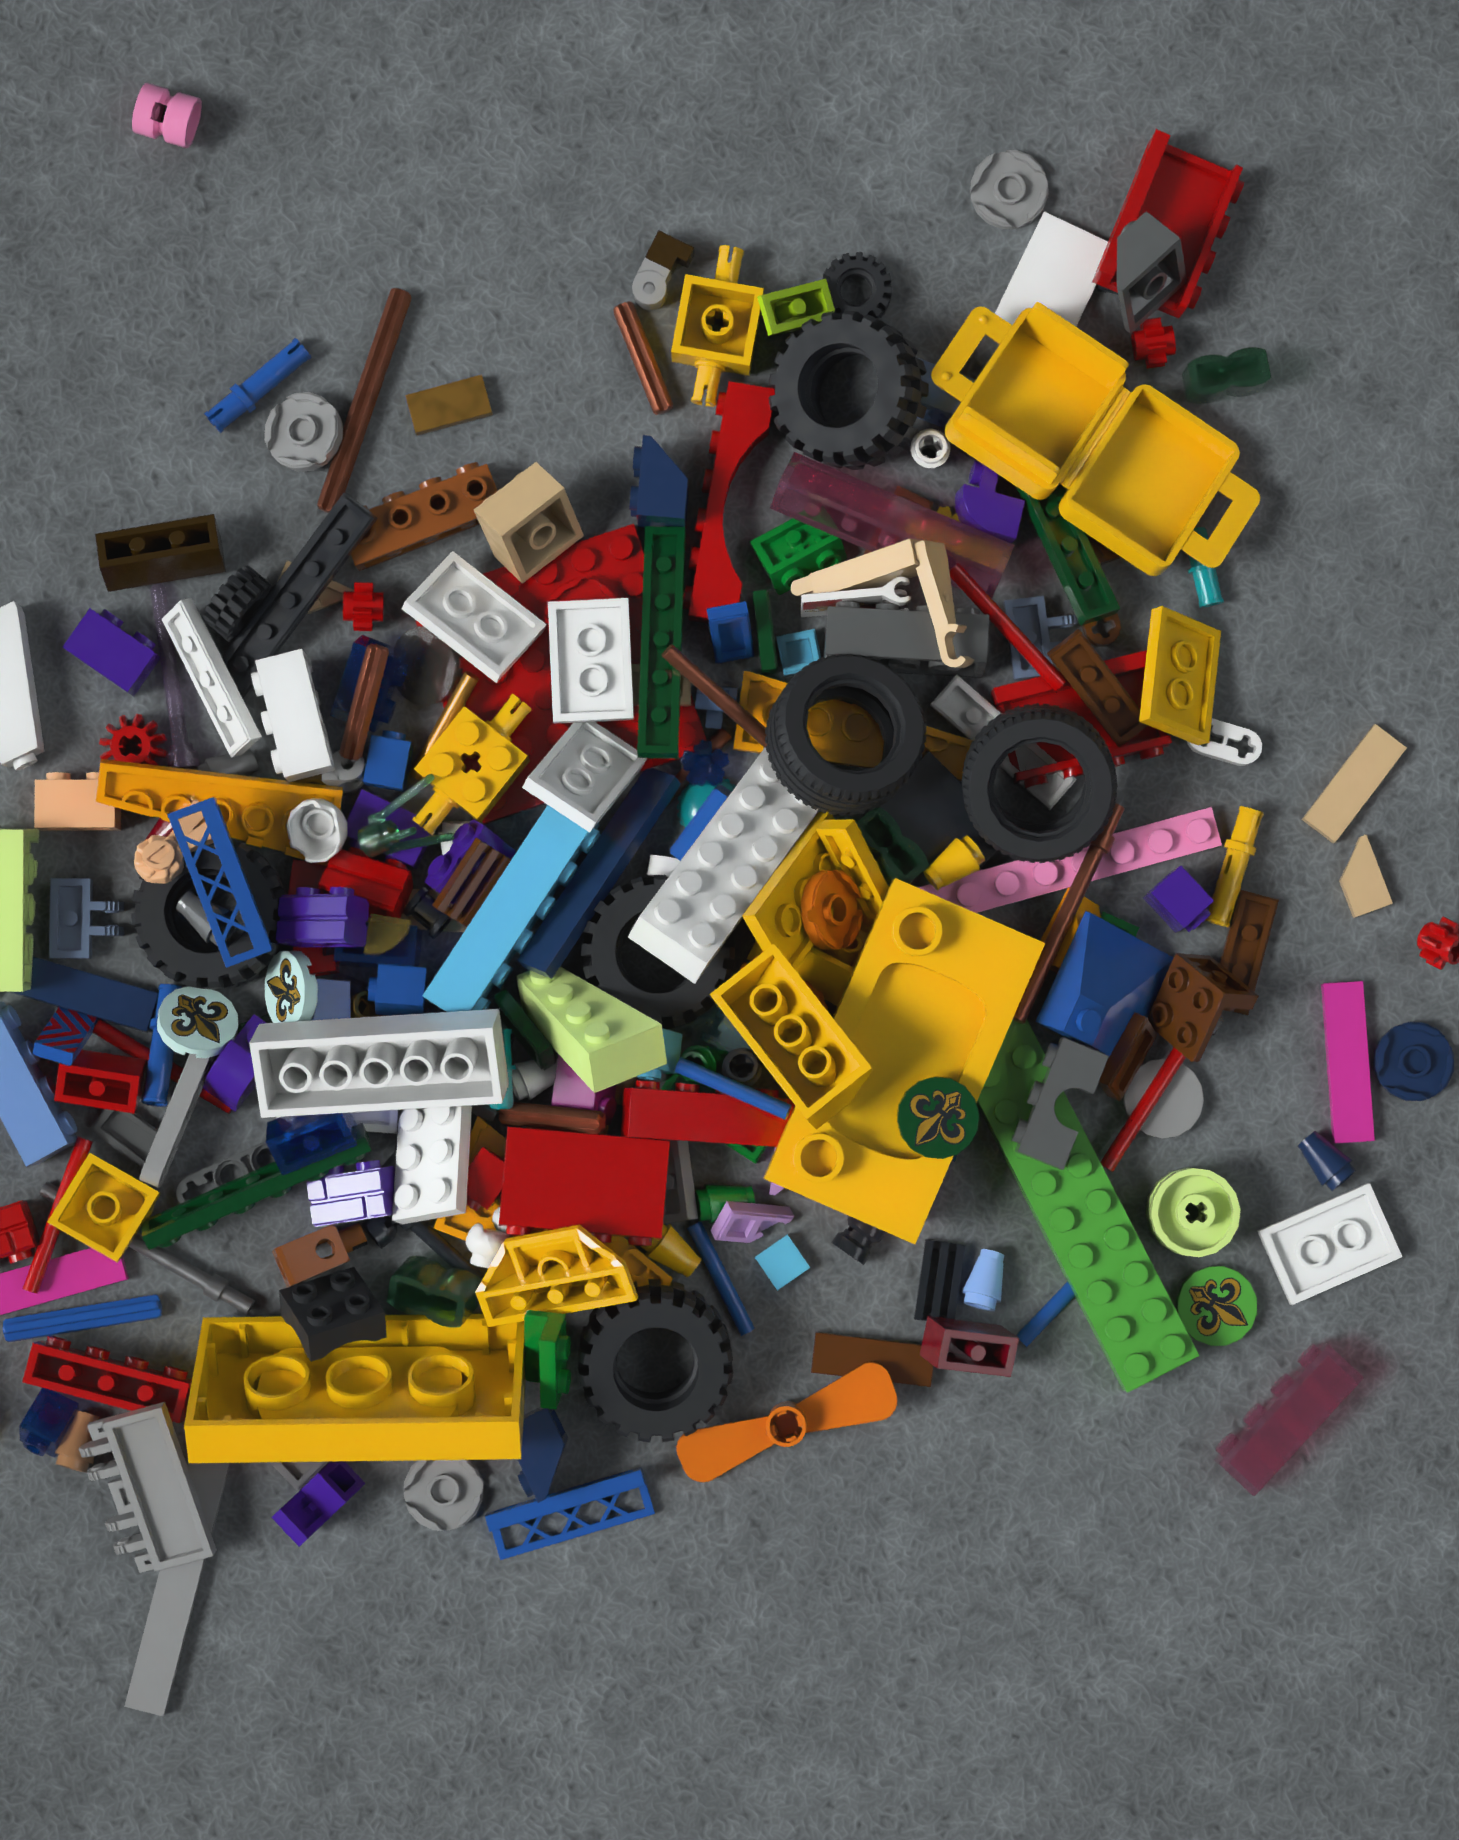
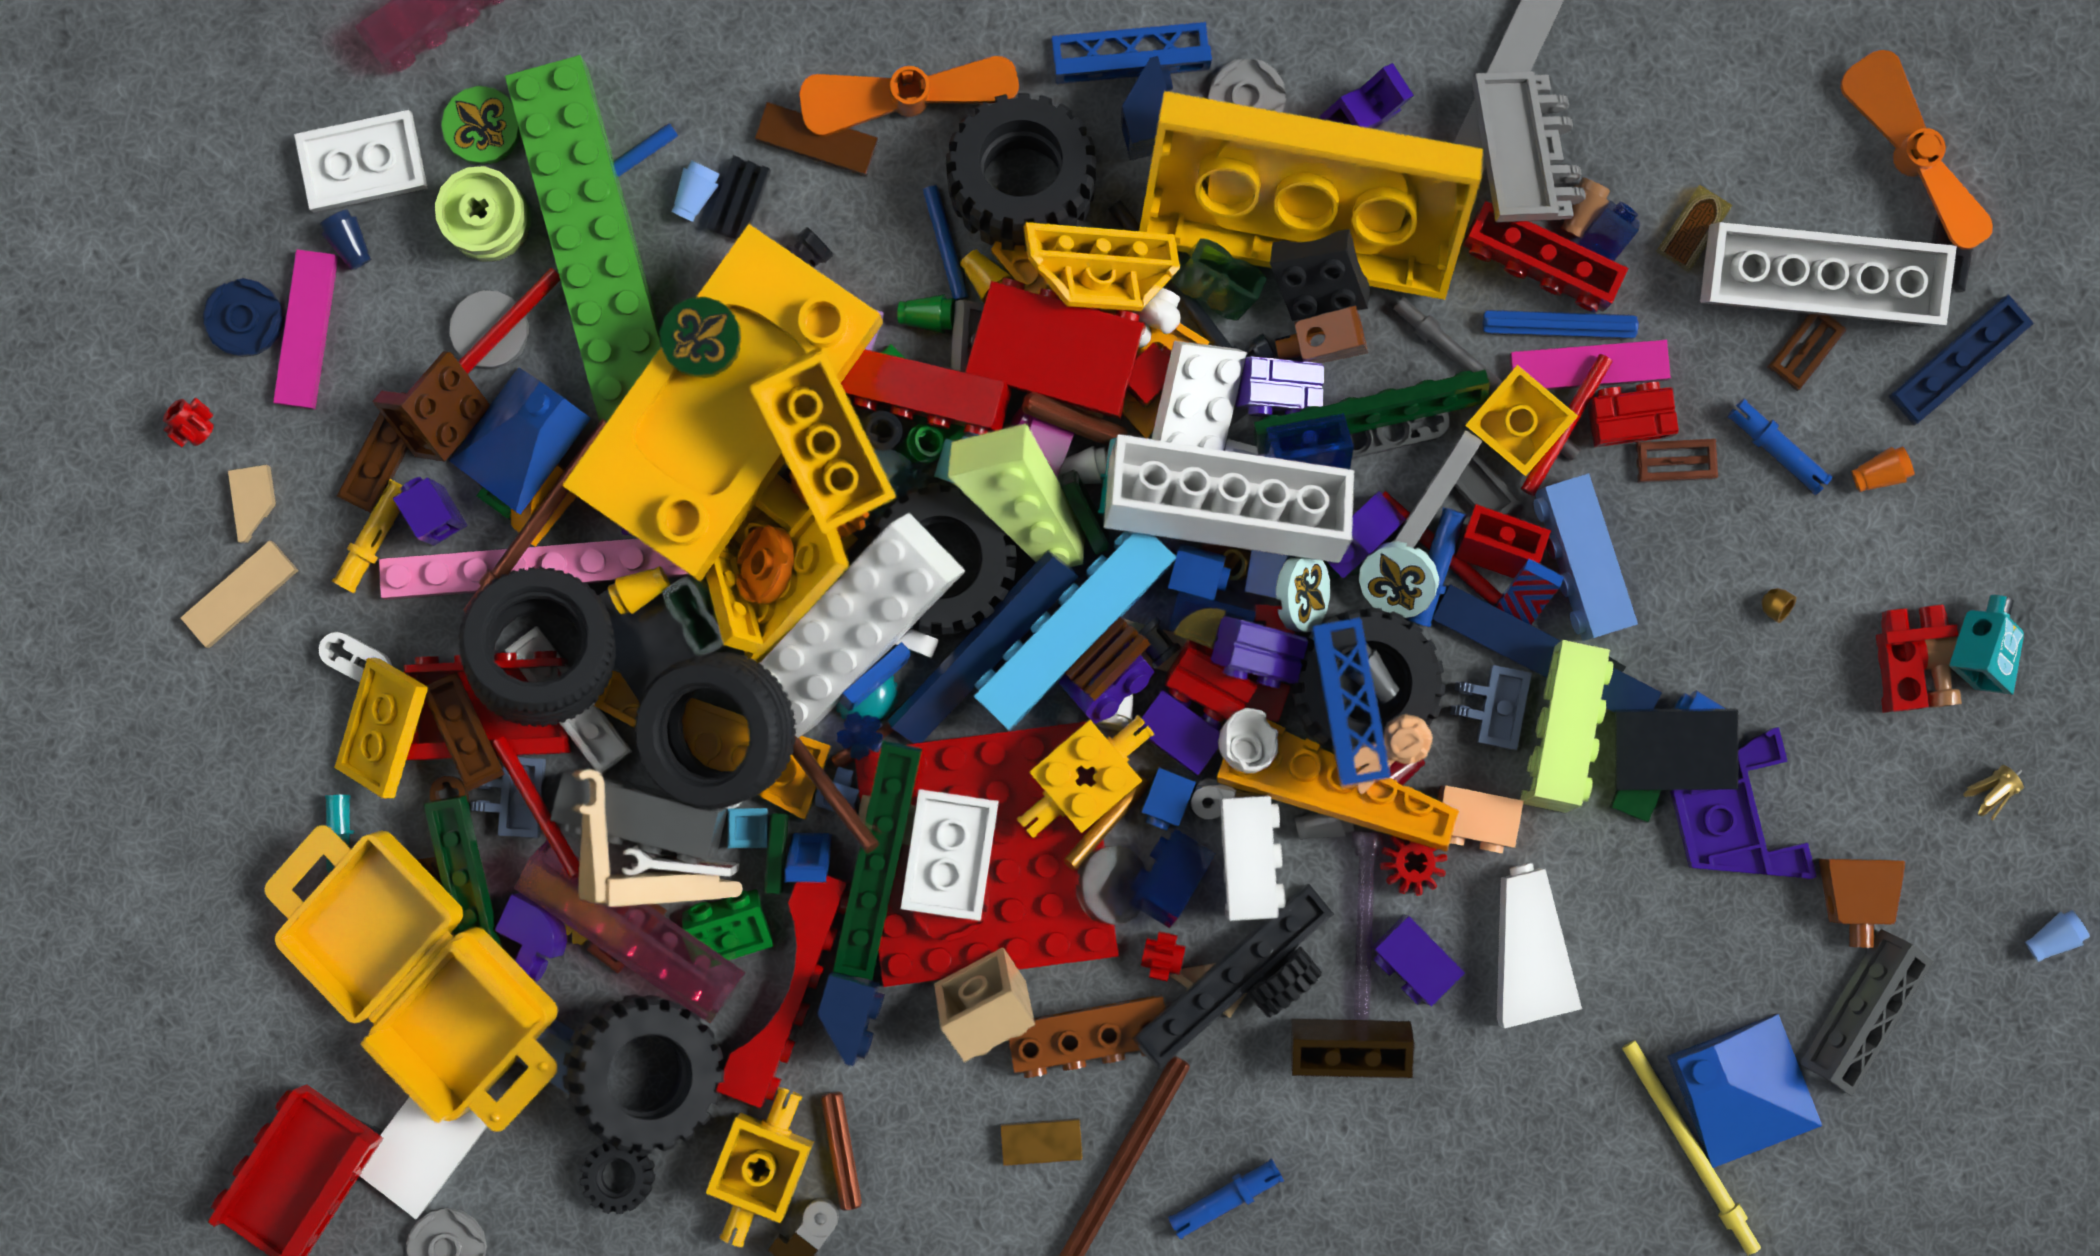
camera: 170 degrees left, 0 degrees up
(211, 677) = (1324, 914): white tile -> none
(303, 432) = (1189, 1142): light grey tile -> none
(364, 702) = (1179, 858): copper axle -> none
(384, 836) = (1184, 721): clear green plant -> none
(474, 616) = (1055, 921): white plate -> none
(547, 1355) = (1122, 193): green bracket -> none
(584, 773) = (976, 742): white plate -> none
(733, 1088) = (894, 410): blue bar -> none
(746, 1221) = (911, 290): lavender tile -> none
(782, 1262) = (884, 246): medium azure tile -> none
(791, 307) = (677, 1168): lime slope -> none
(933, 440) = (567, 1004): white cone -> none
(969, 1346) = (721, 128): dark red brick -> none
(1042, 1134) = (569, 364): dark grey arch -> none
(1127, 1056) = (513, 372): reddish brown tile -> none
(1147, 268) = (319, 1137): dark grey slope -> none
(1153, 343) = (336, 1064): red gear -> none
(1215, 375) = (271, 1016): clear green brick -> none

